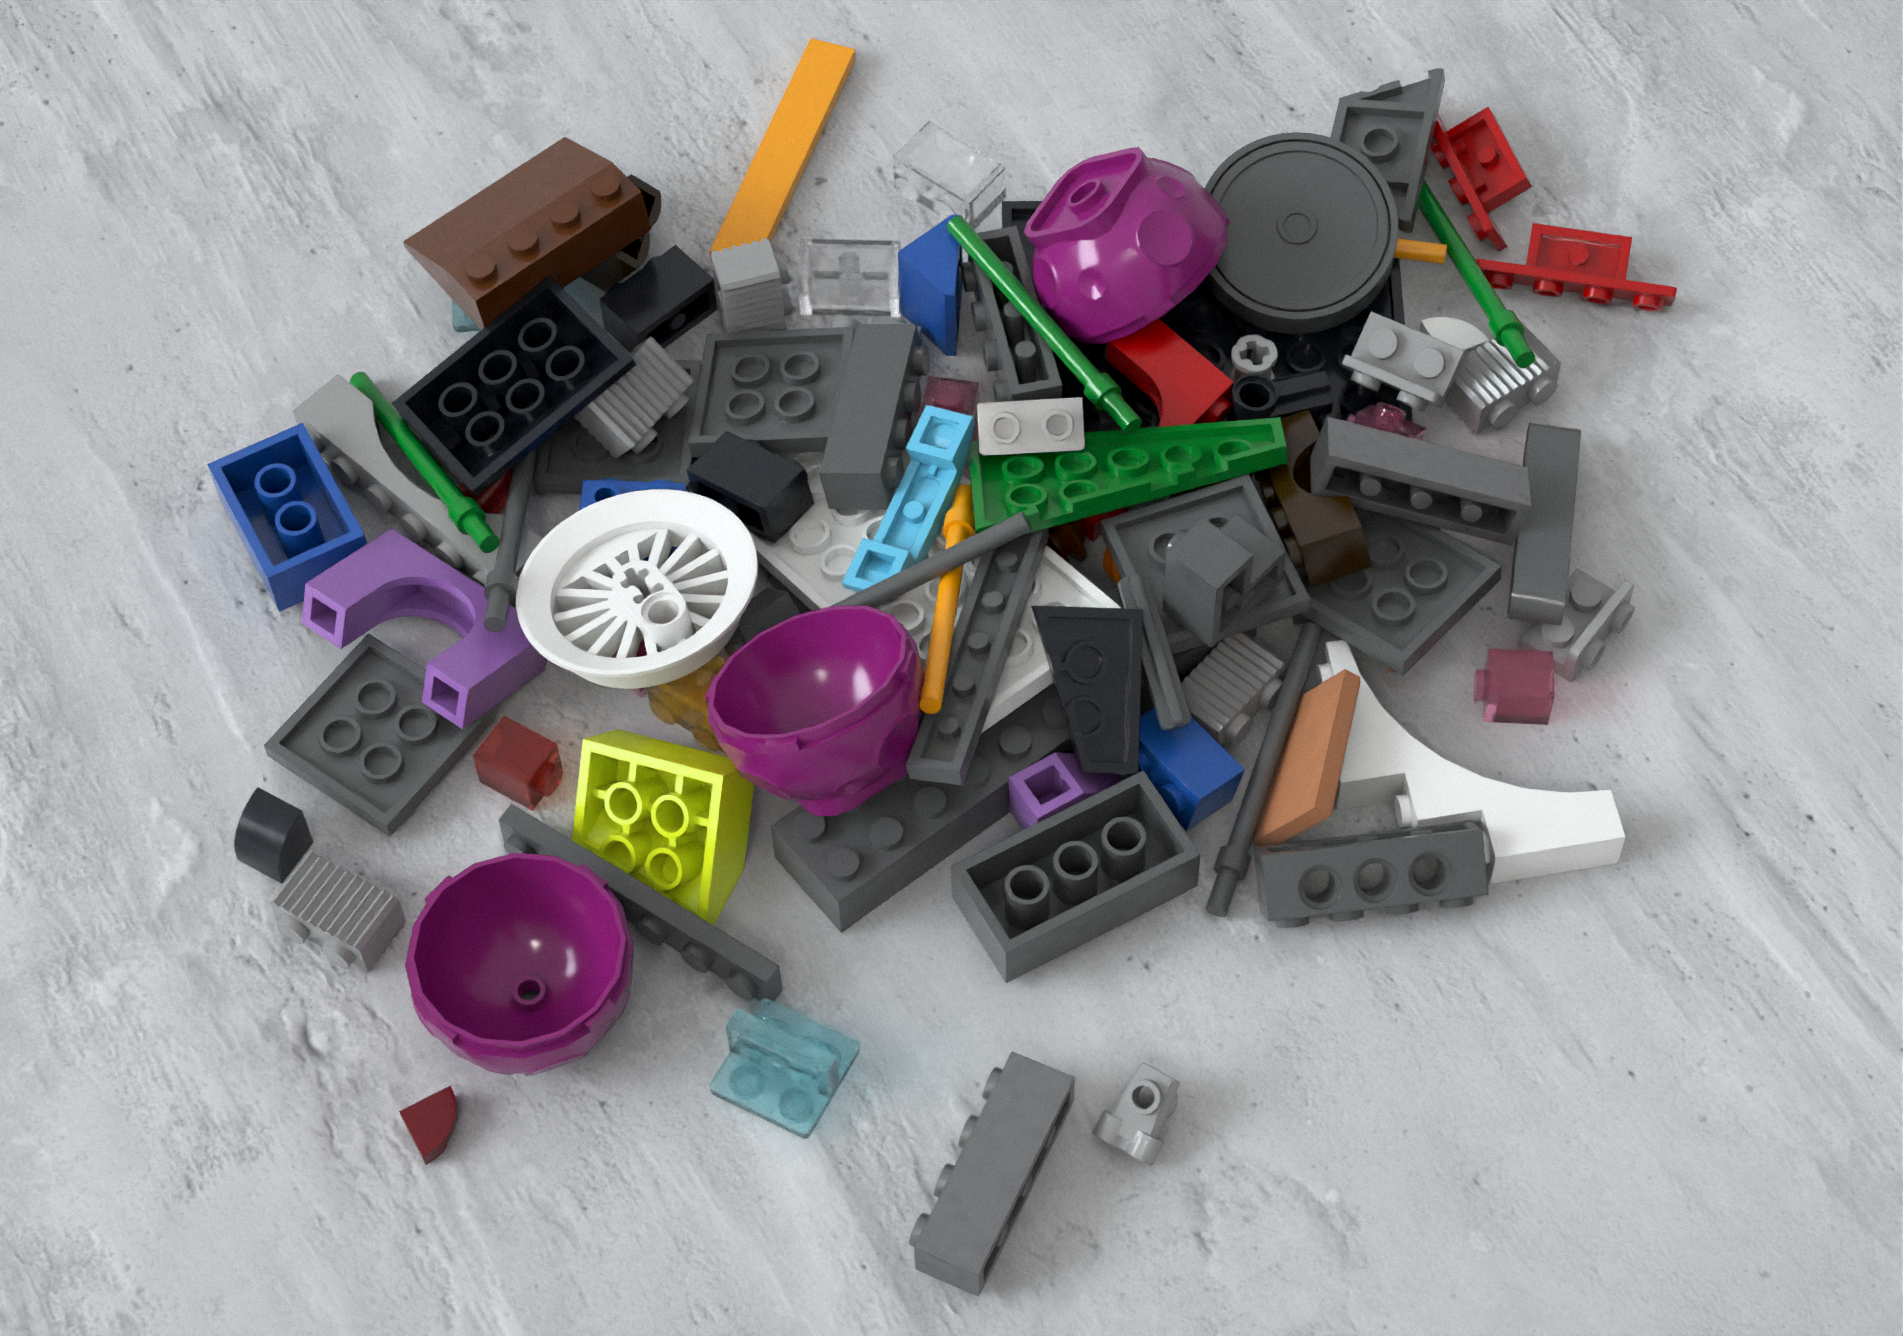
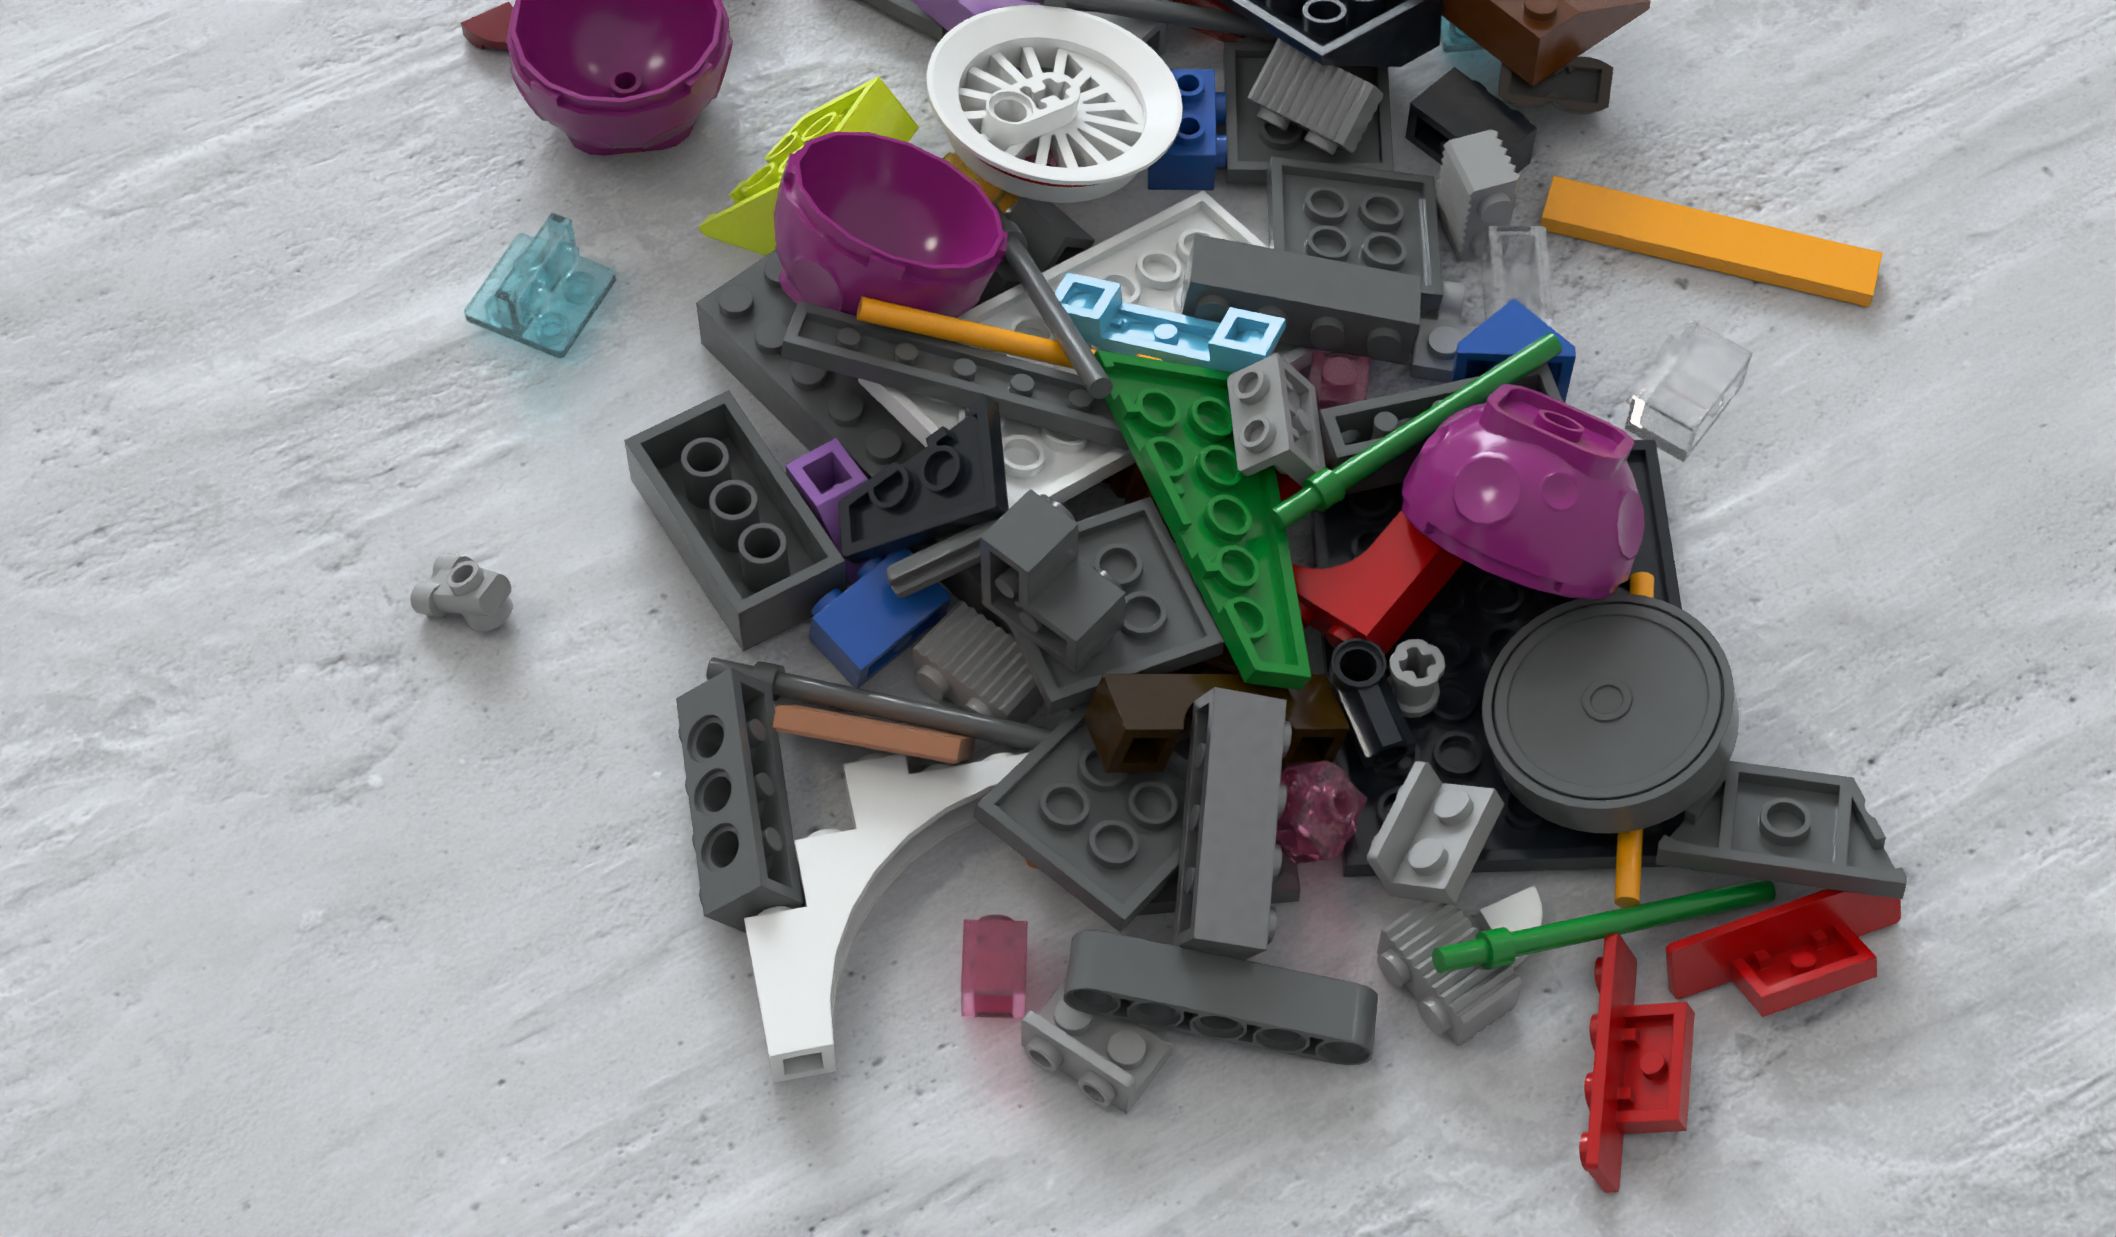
camera: 85 degrees right, 0 degrees up
(519, 763) = (887, 49): clear red brick -> none
(652, 913) = (720, 163): dark grey plate -> none
(753, 484) = (1210, 198): black brick -> none
(993, 1173) = (400, 459): flat silver brick -> none

